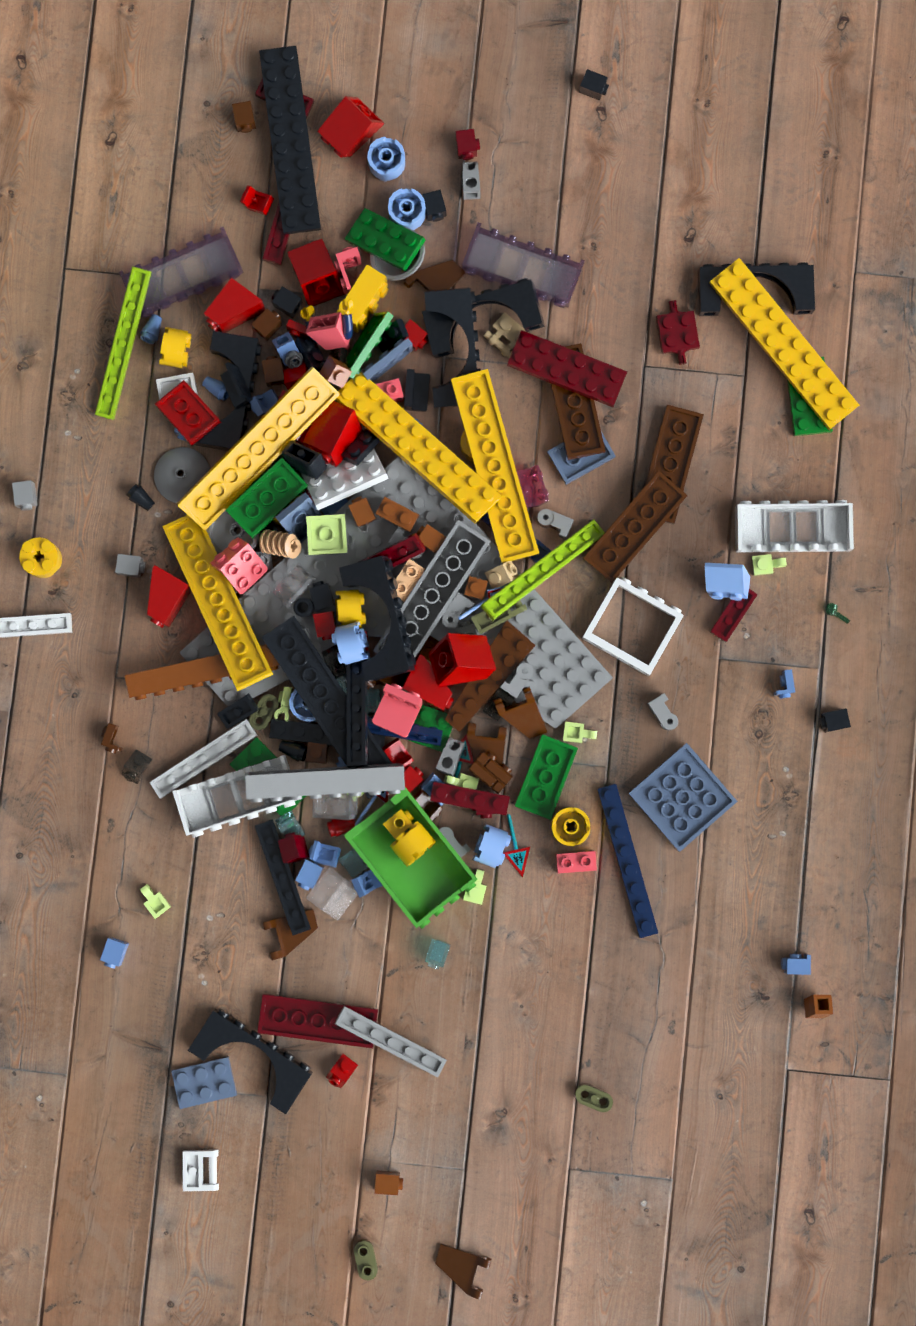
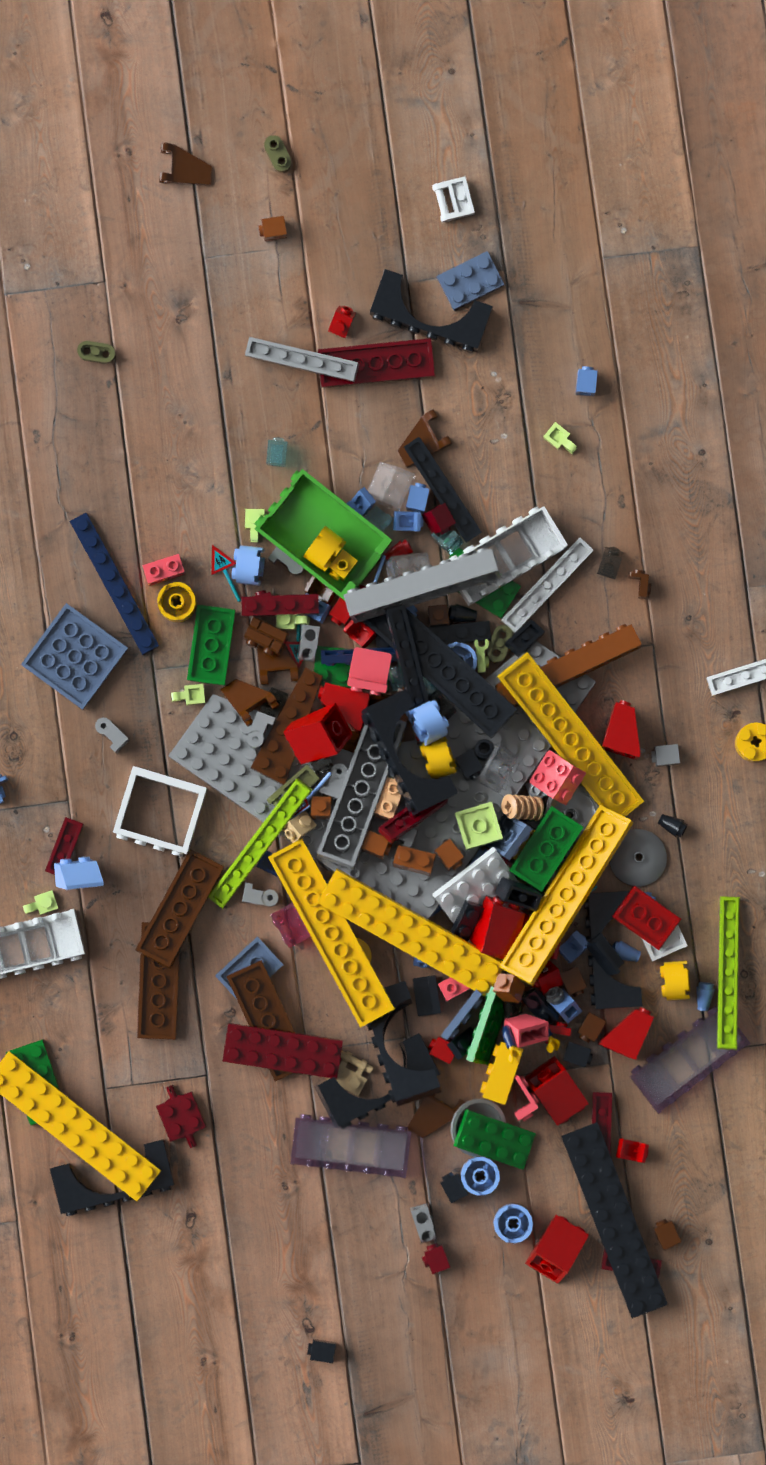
camera: 160 degrees right, 0 degrees up
(325, 624) = (459, 738): red brick -> none

